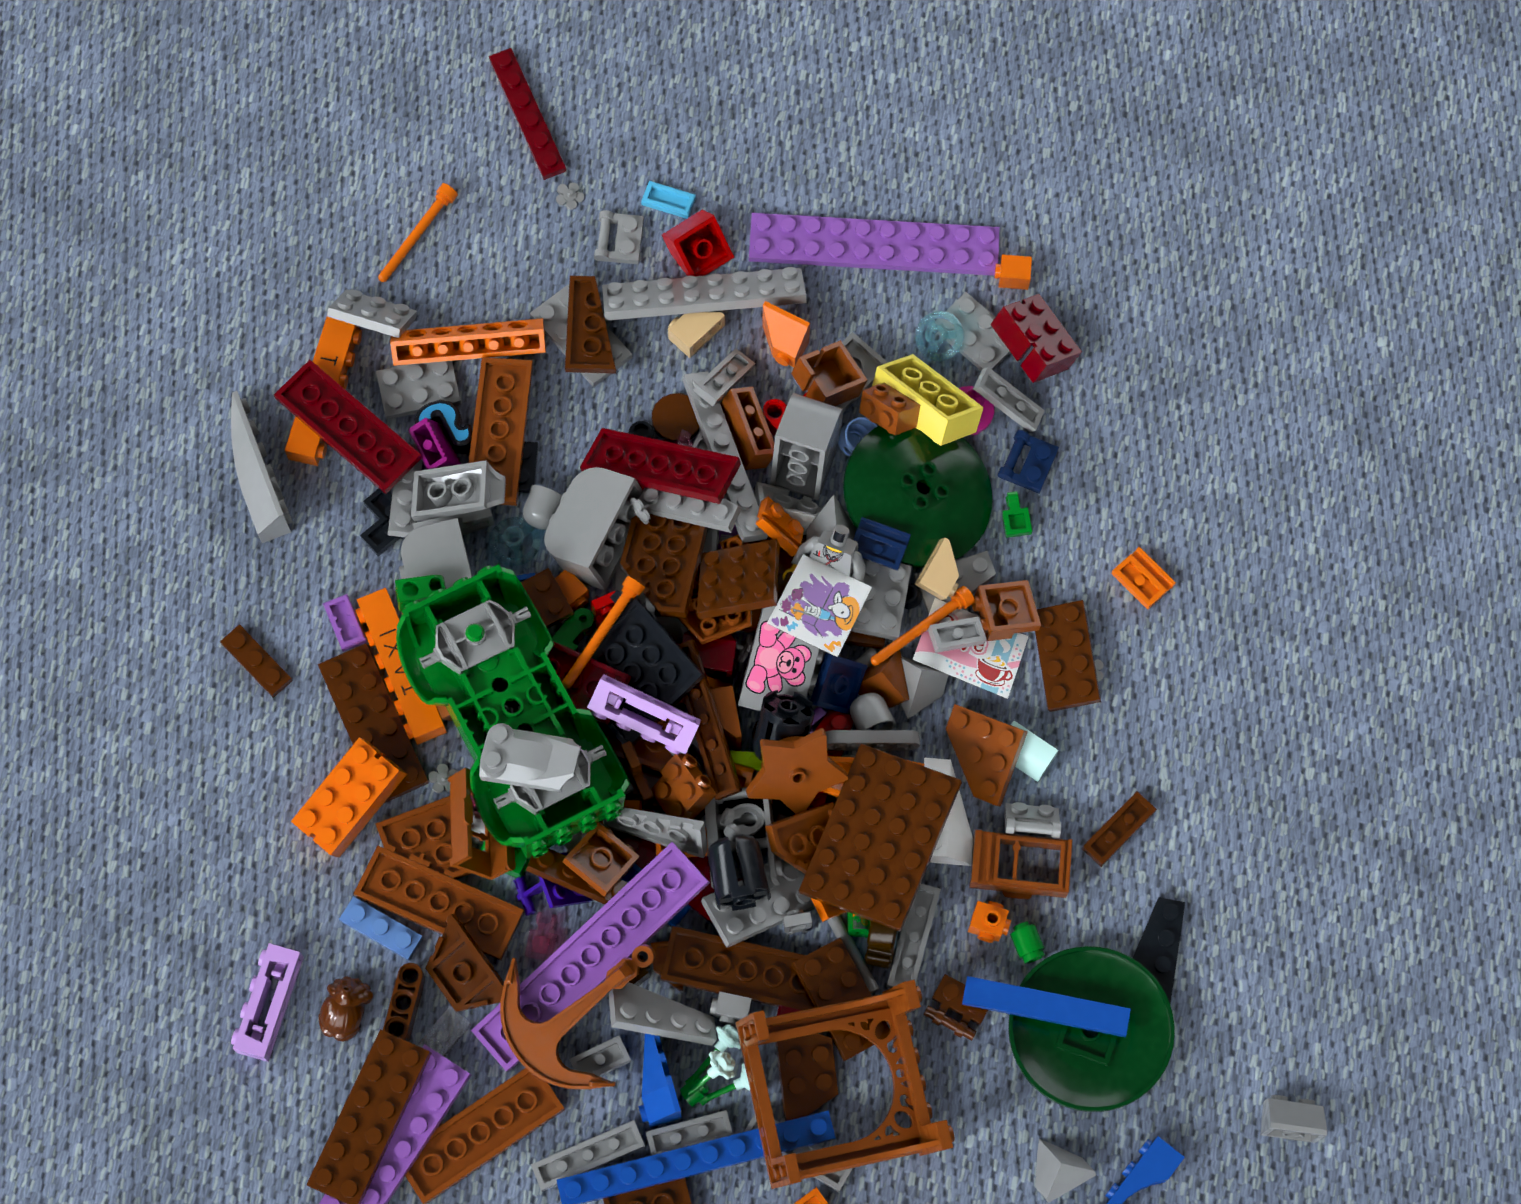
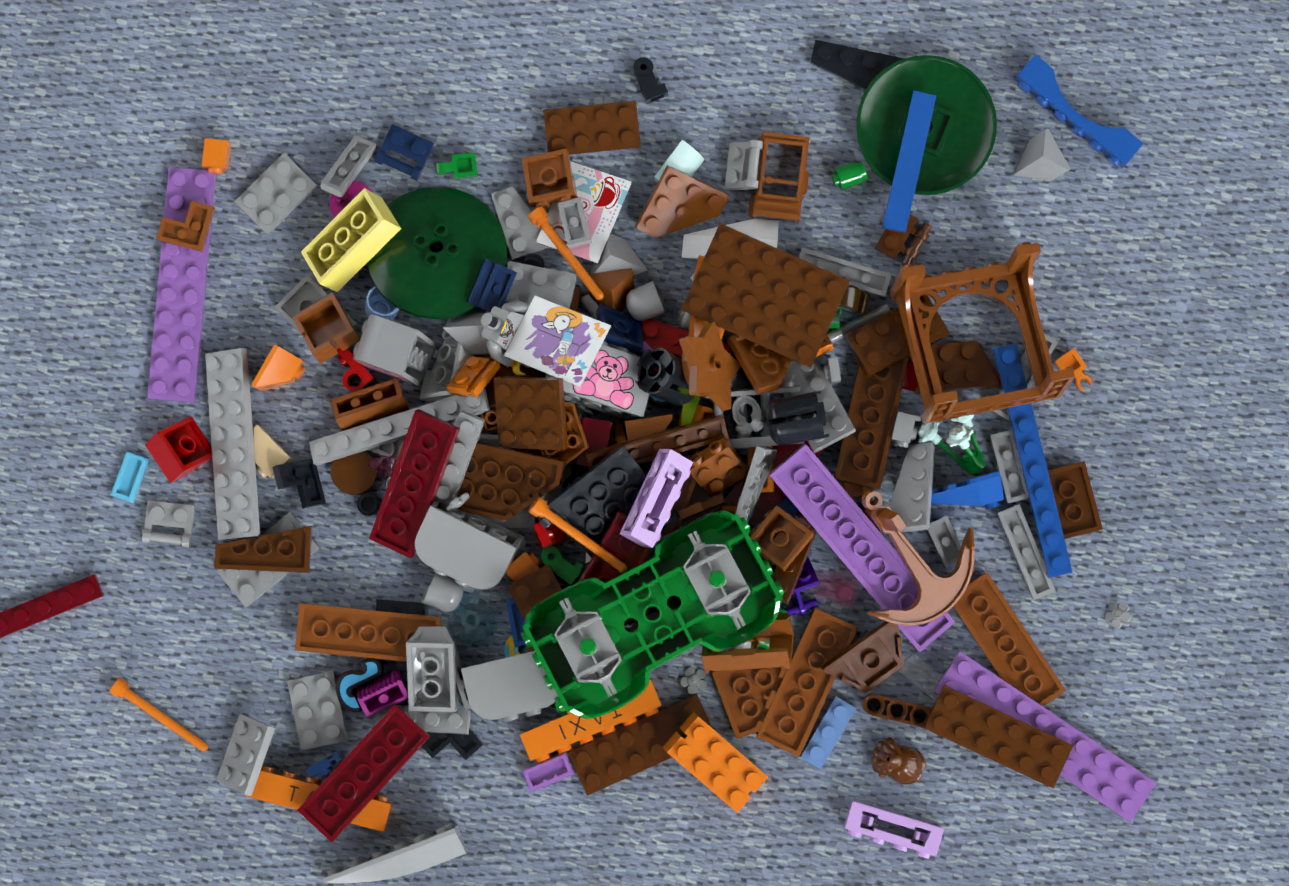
camera: 85 degrees left, 15 degrees up
(256, 661) = (581, 851): reddish brown plate -> none
(357, 388) = (325, 765): none -> dark blue plate
(417, 588) = (534, 700): green leg -> none
(469, 342) = (277, 662): orange brick -> none
(527, 758) = (707, 595): light grey slope -> none
(569, 195) = (122, 571): light grey plant -> none
(669, 366) = (305, 477): none -> black plate
(724, 377) = (319, 425): light grey plate -> none
(879, 739) = (670, 303): light grey beam -> none
(889, 408) = (362, 273): dark orange brick -> none
(928, 246) = (191, 233): none -> dark orange plate
(932, 329) = (283, 235): clear light blue piece -> none
(940, 572) = (515, 235): tan slope -> none
(980, 922) = (828, 214): orange brick -> none
(1036, 325) = (279, 137): dark red piece -> none
(1118, 829) = (749, 91): reddish brown plate -> none
(1128, 712) = (647, 82): none -> black leg
(1143, 578) = (519, 56): orange plate -> none

